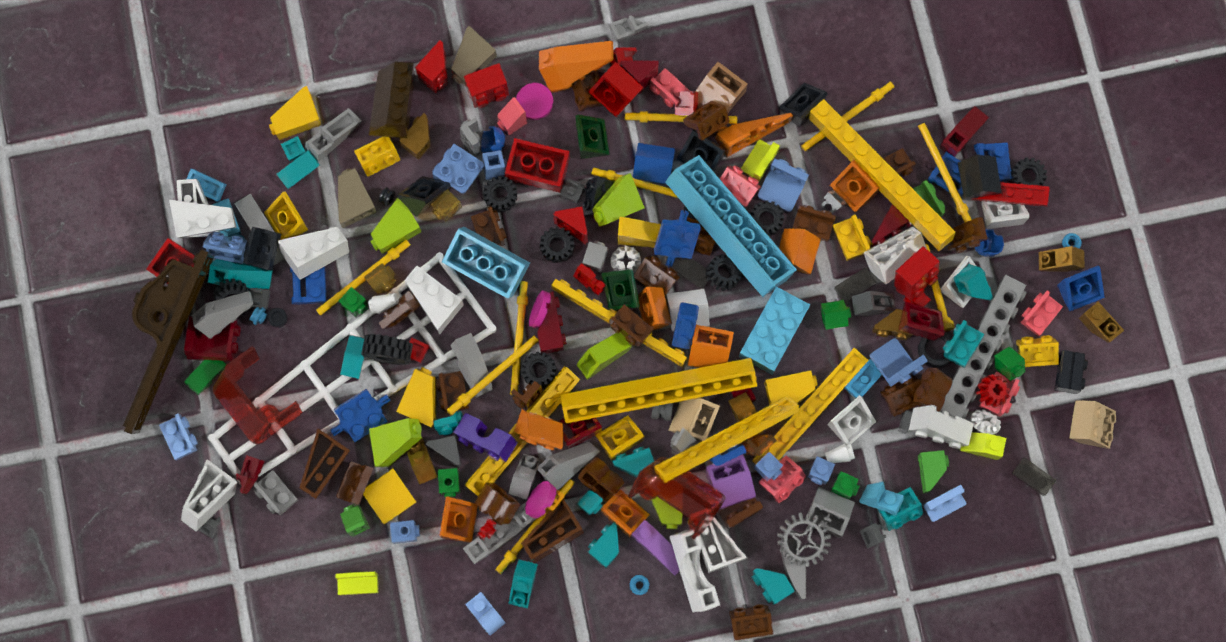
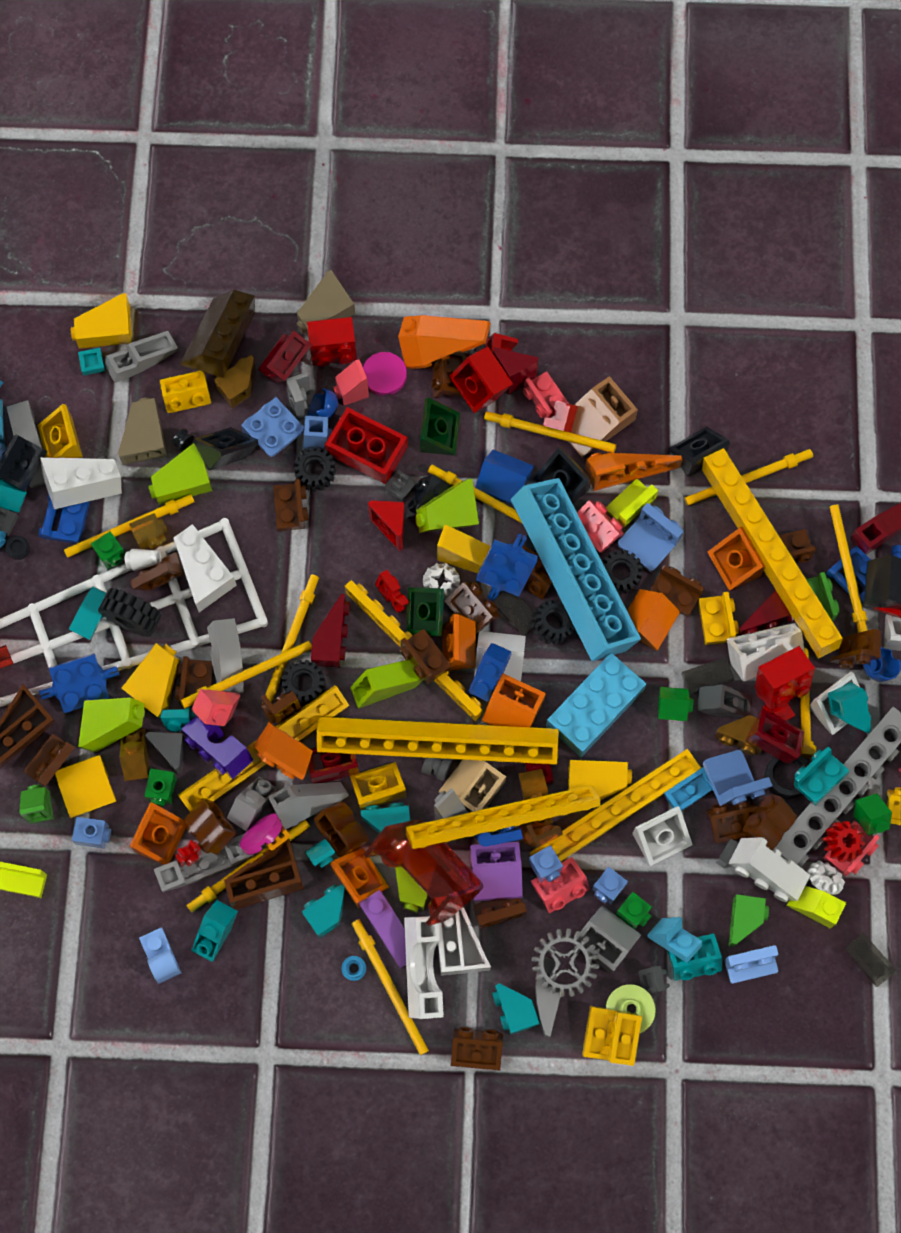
camera: 15 degrees right, 5 degrees down
(298, 169) = (90, 385): teal slope -> none
(419, 350) = (168, 624): red plate -> none
(433, 68) = (277, 307): red slope -> none
(446, 206) = (247, 467): clear yellow brick -> none
(452, 109) = (284, 357): none -> dark red panel
(475, 407) = (215, 706): none -> coral slope
(485, 262) = (275, 541): medium azure brick -> none
(539, 309) = (323, 611): dark pink tile -> none
(554, 255) = (365, 555): black tyre -> none
(595, 256) = (406, 566): light grey brick -> none
(626, 28) = (514, 316): light grey slope -> none
(645, 564) = (367, 944): none -> yellow bar
(707, 119) = (579, 439): reddish brown bracket -> none
(835, 200) = (708, 570): tile -> none
(840, 454) = (639, 872): white cone -> none
(852, 585) = (612, 1035): none -> yellow slope
(858, 571) = (636, 995): none -> yellowish green dish

